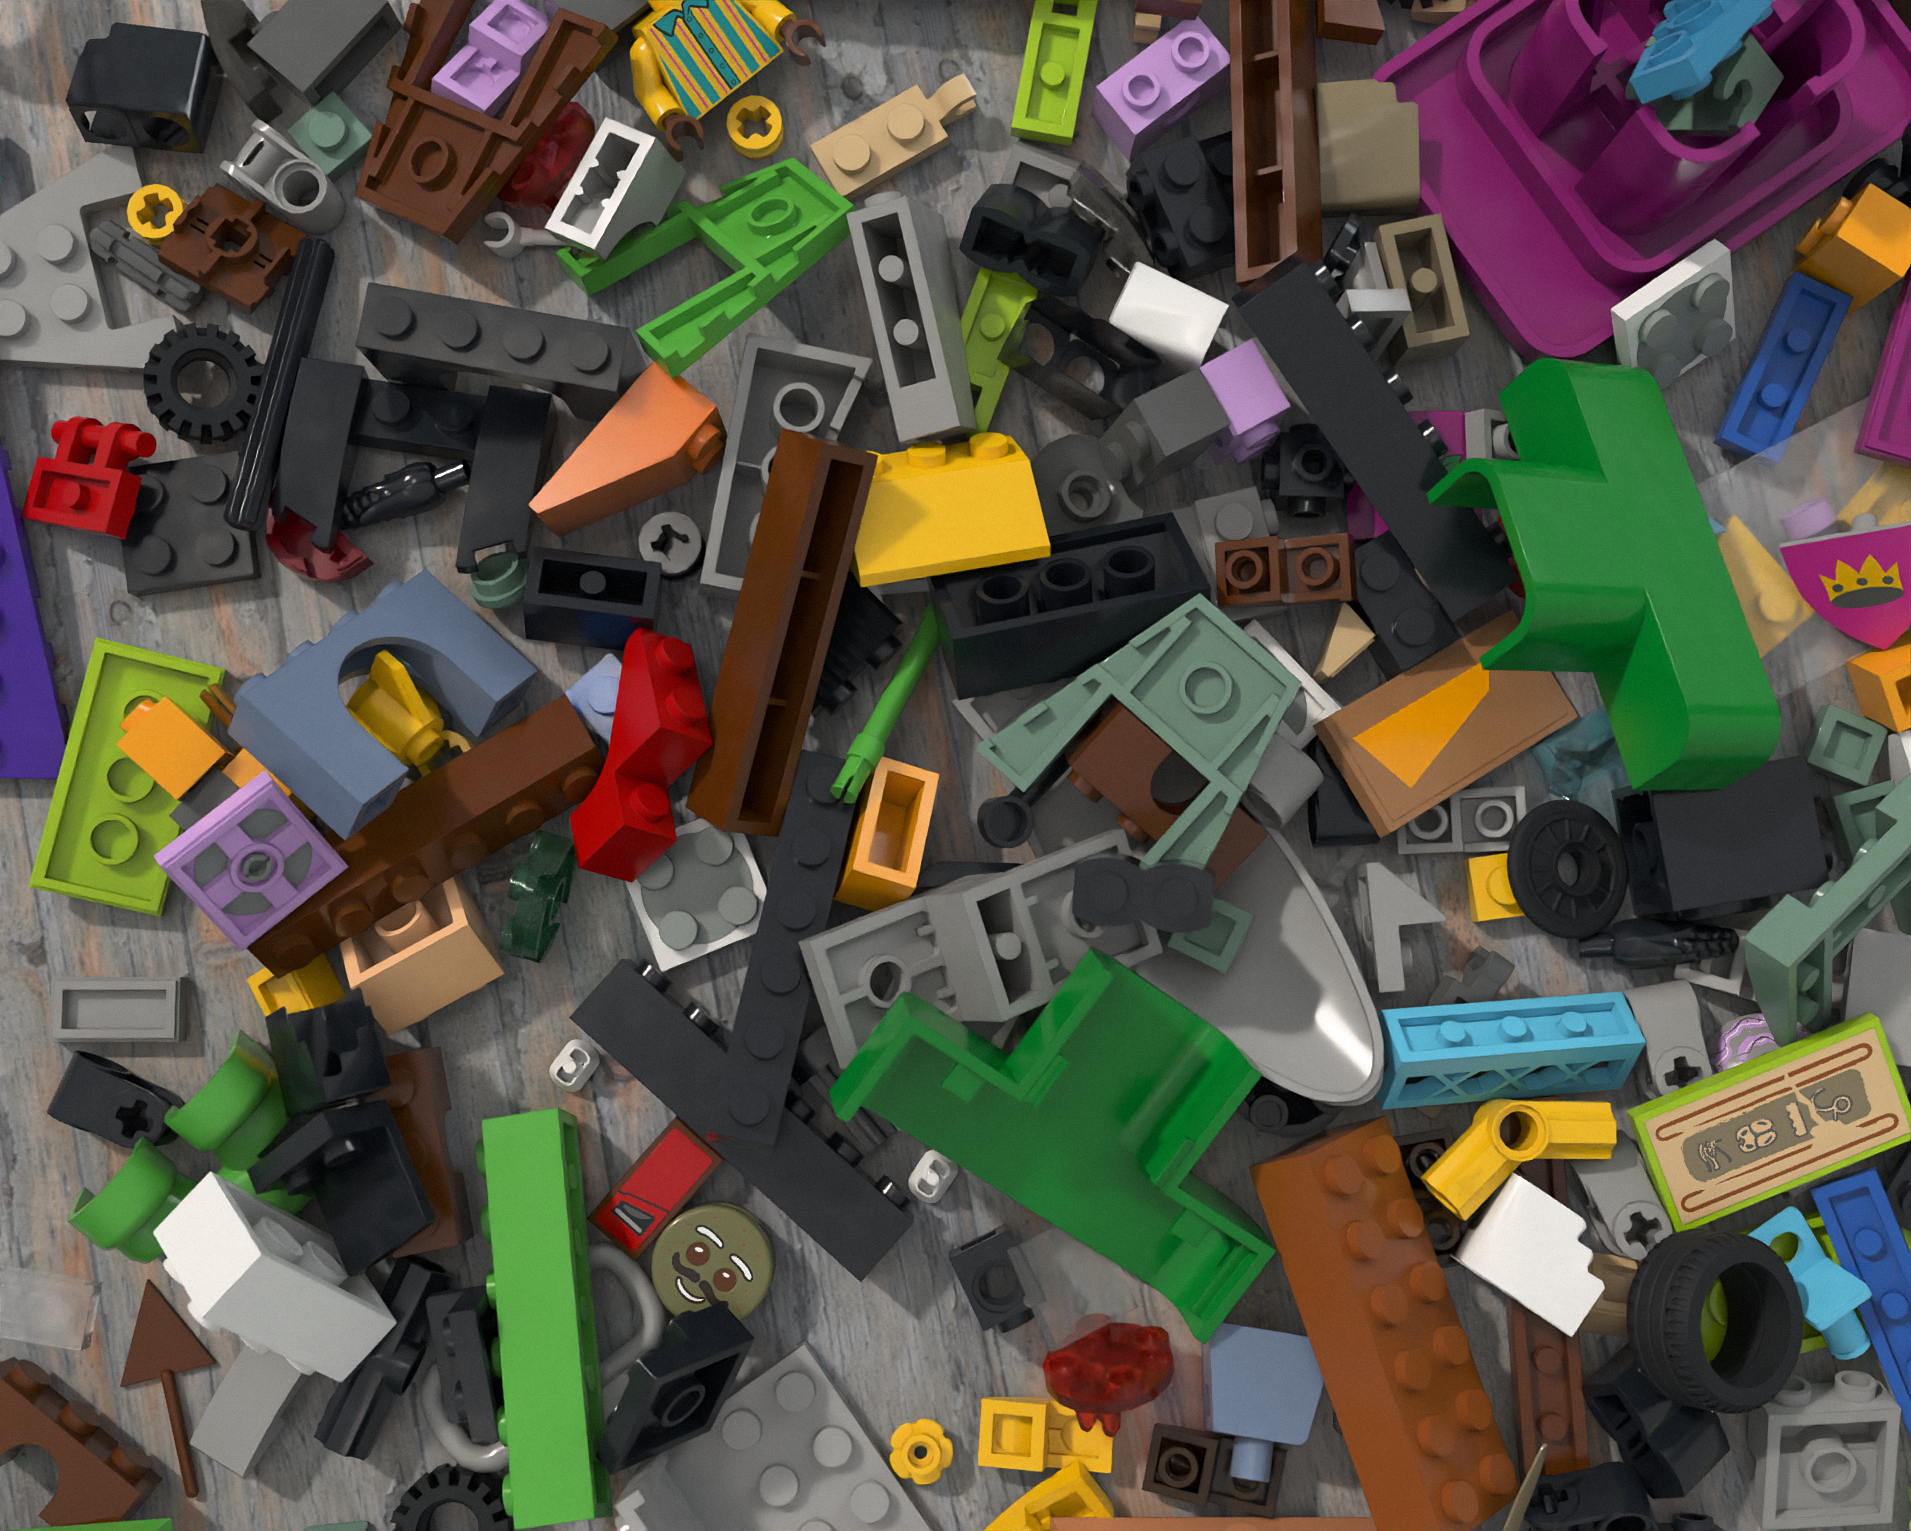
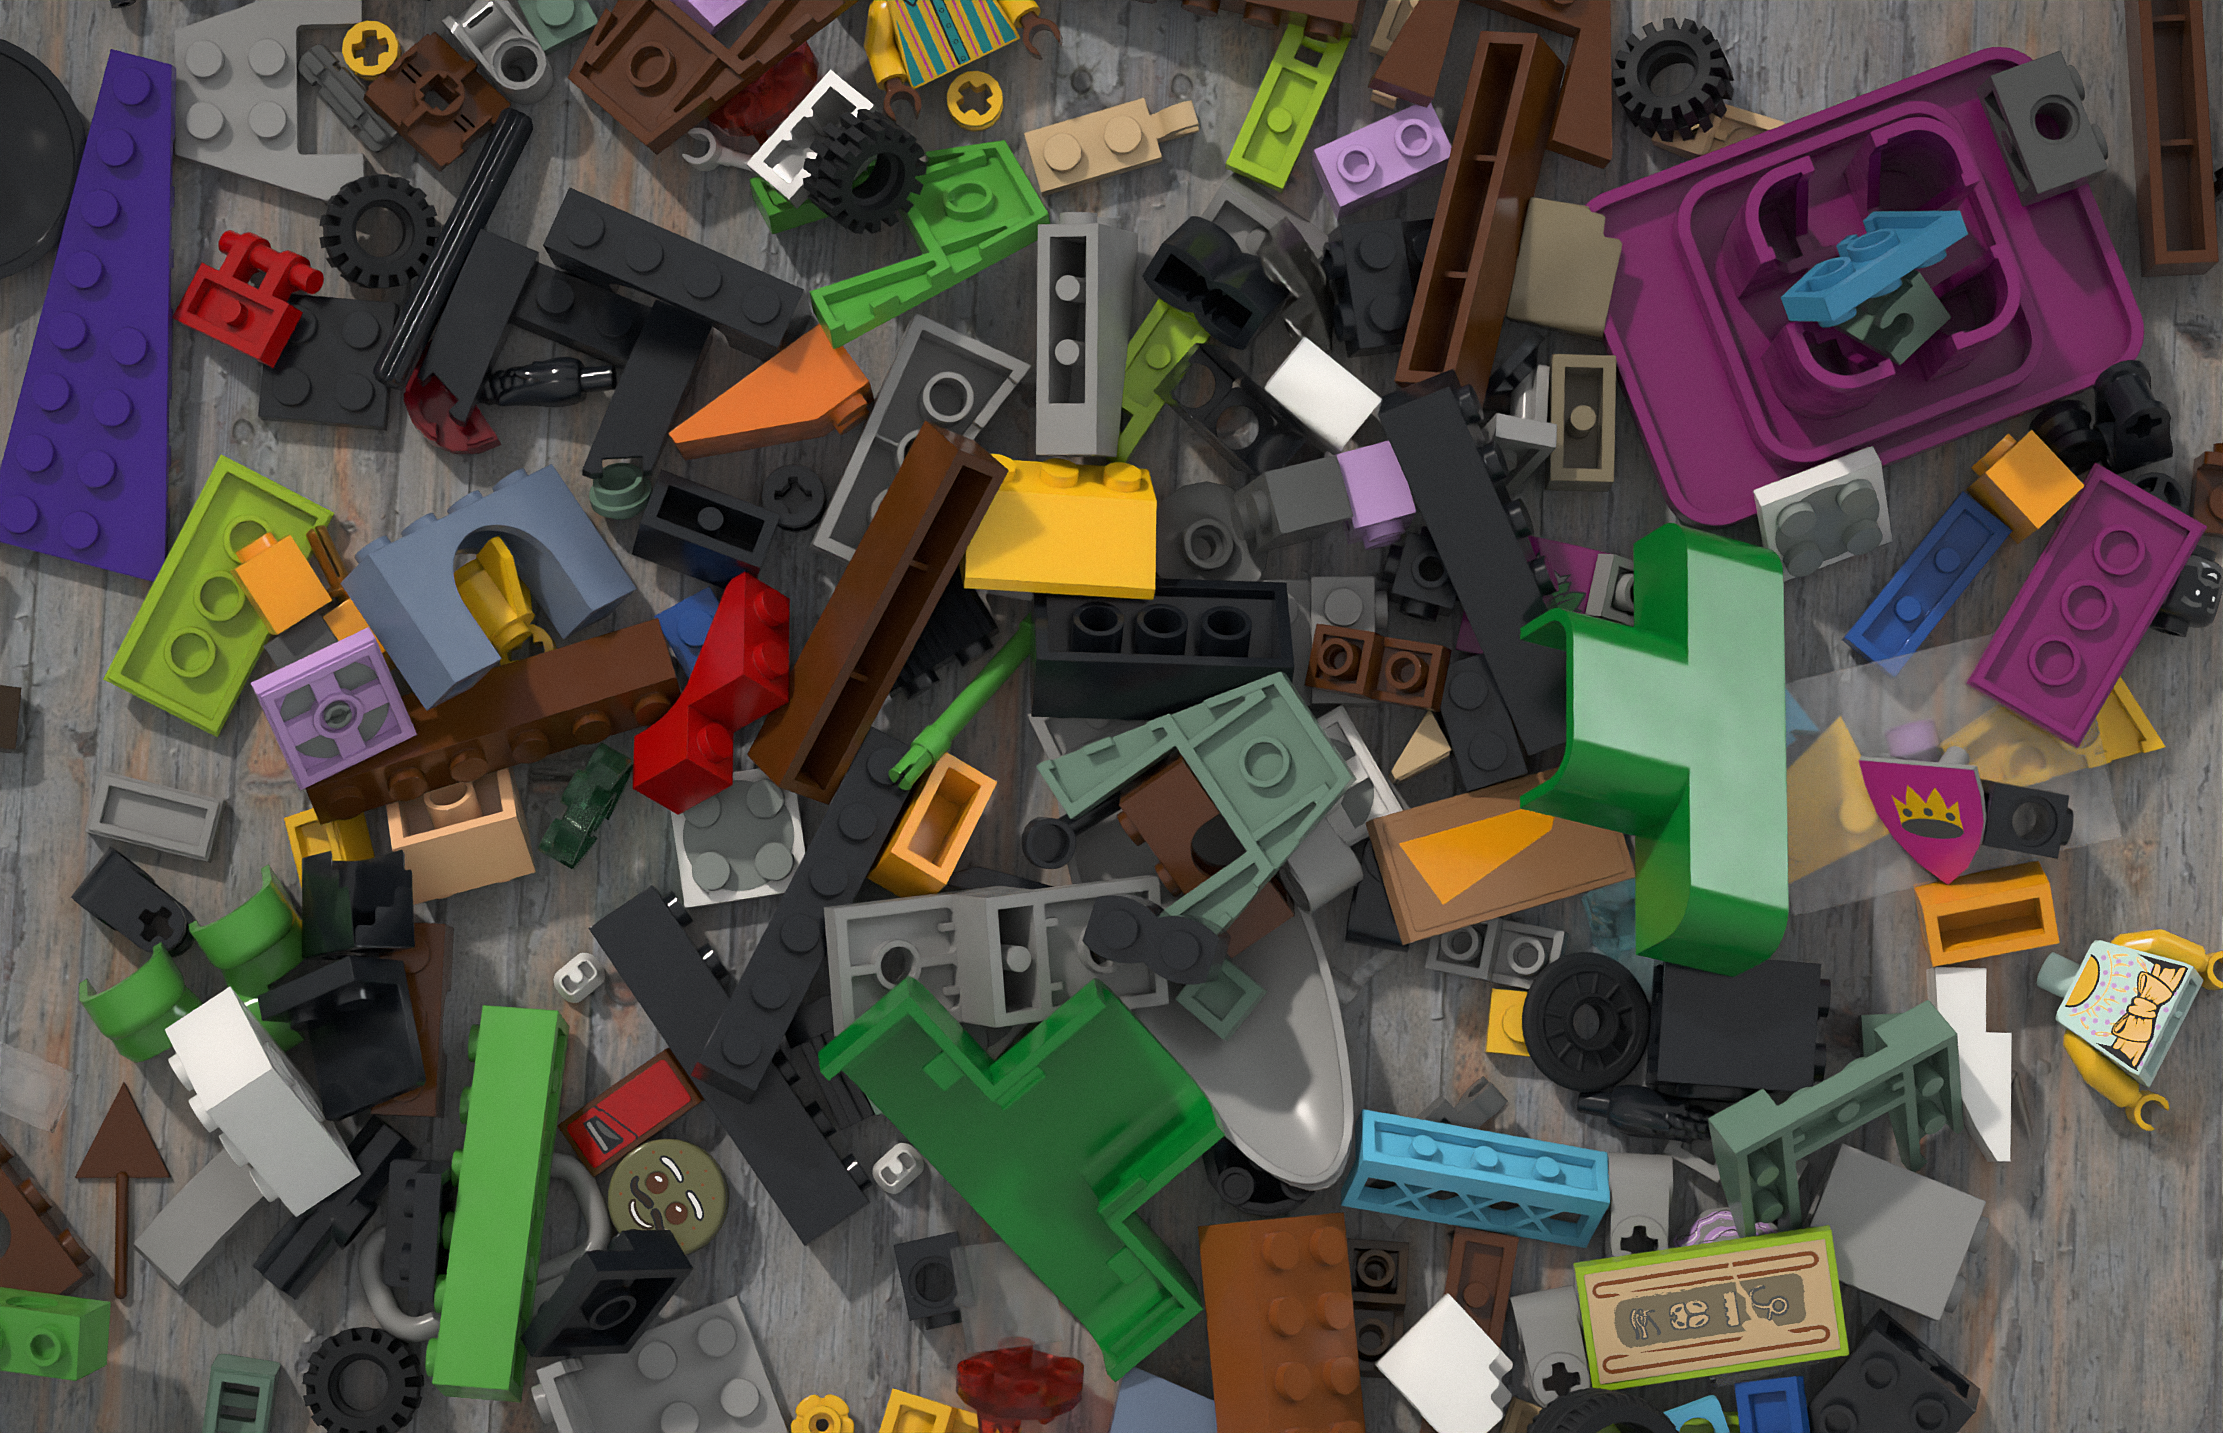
camera: 20 degrees right, 0 degrees up
(634, 198) = (842, 157): none -> black tyre
(1383, 907) = (1398, 1015): light grey slope -> none
(1548, 1131) = (1497, 1265): yellow piece -> none
(1844, 746) = (1887, 968): sand green plate -> none

